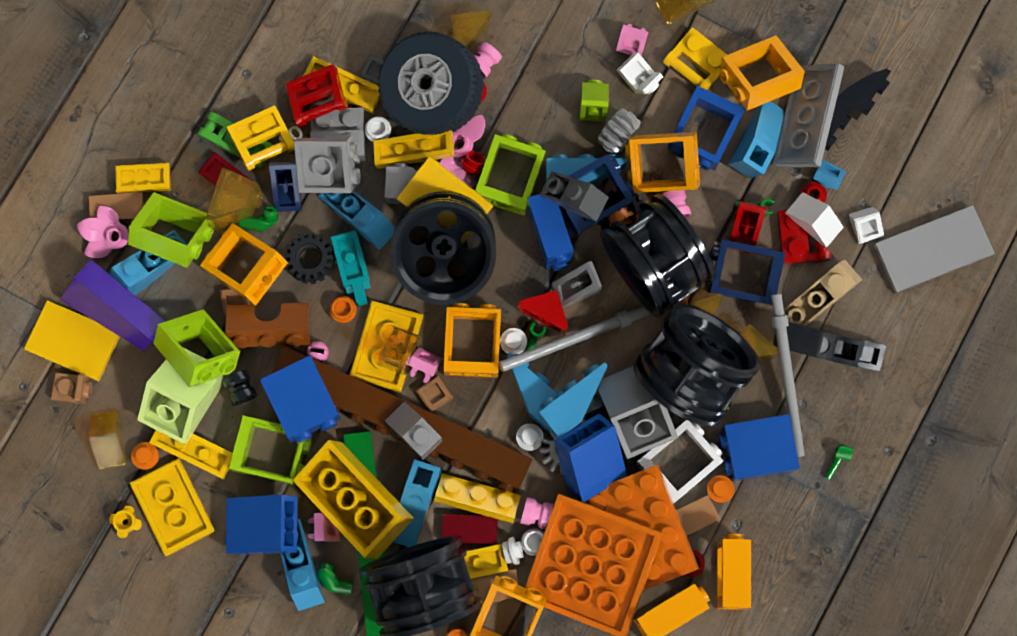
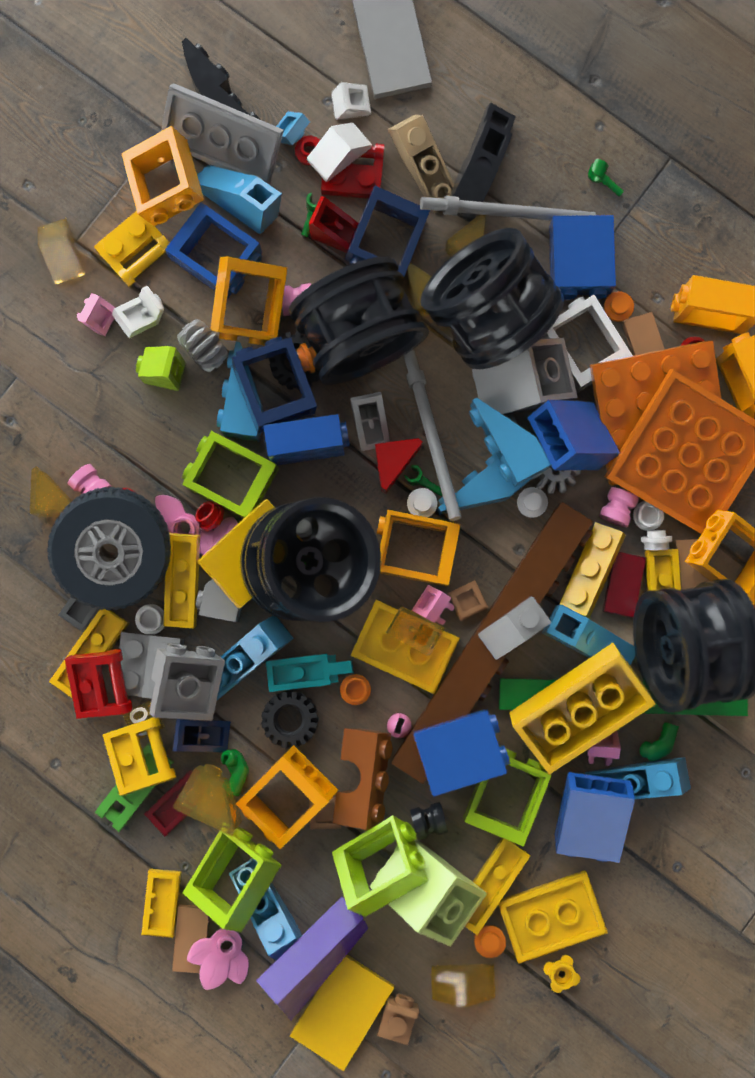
camera: 80 degrees left, 5 degrees up
(574, 195) = (276, 400): dark grey slope -> none

